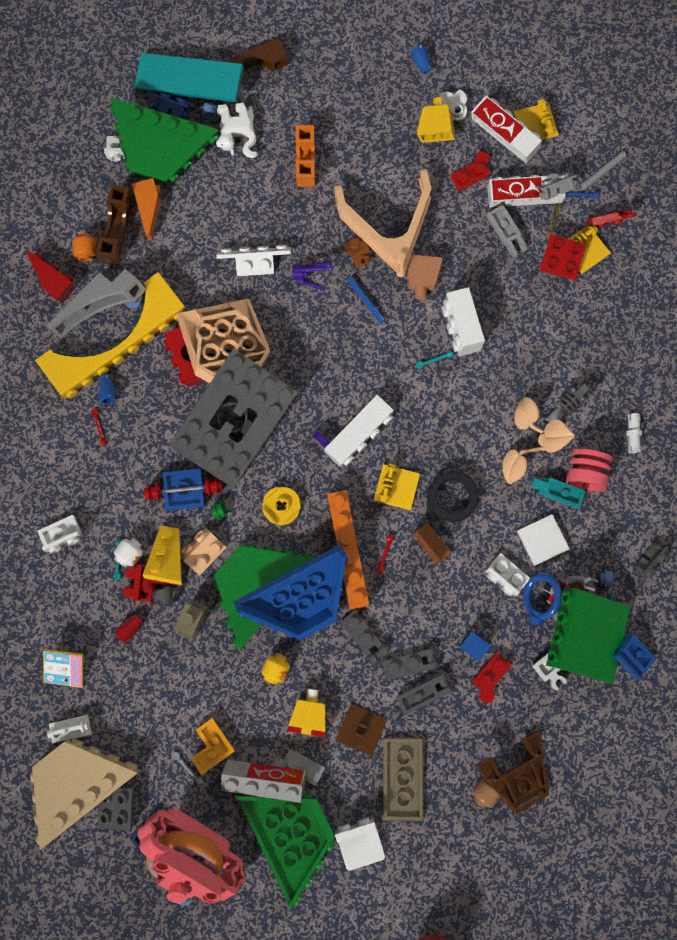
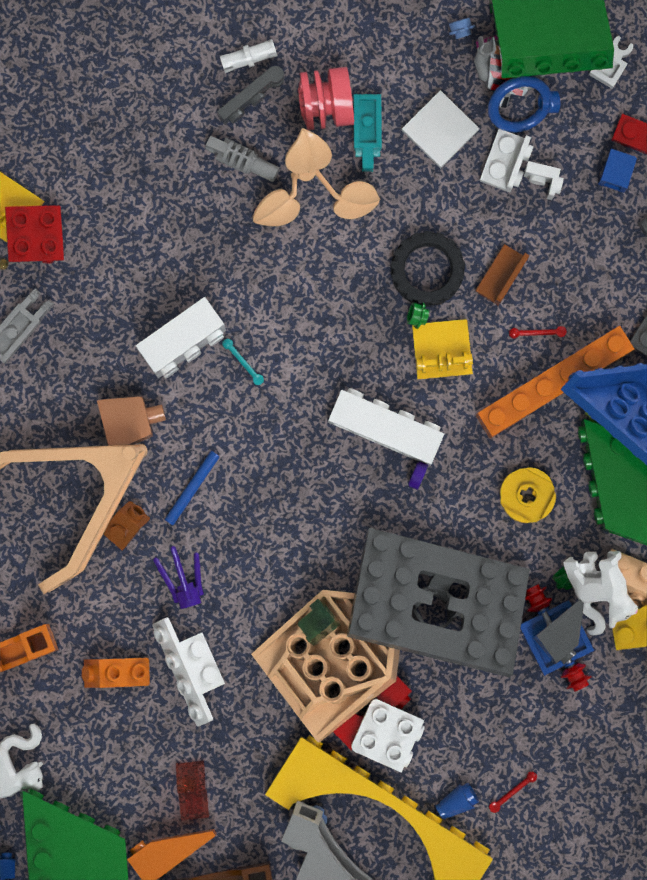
camera: 120 degrees left, 5 degrees up
(163, 359) = (388, 735): none -> white bracket
(180, 234) = (192, 790): none -> clear red slope
(181, 489) = (562, 634): none -> dark grey slope
(204, 527) = (600, 586): none -> white animal
(249, 338) = (318, 622): none -> clear green panel
(268, 214) = (115, 672): none -> orange bracket
(424, 478) = (417, 315): none -> green plate
(489, 594) = (539, 174): none -> white bracket
(607, 424) = (251, 94): none -> dark grey plate

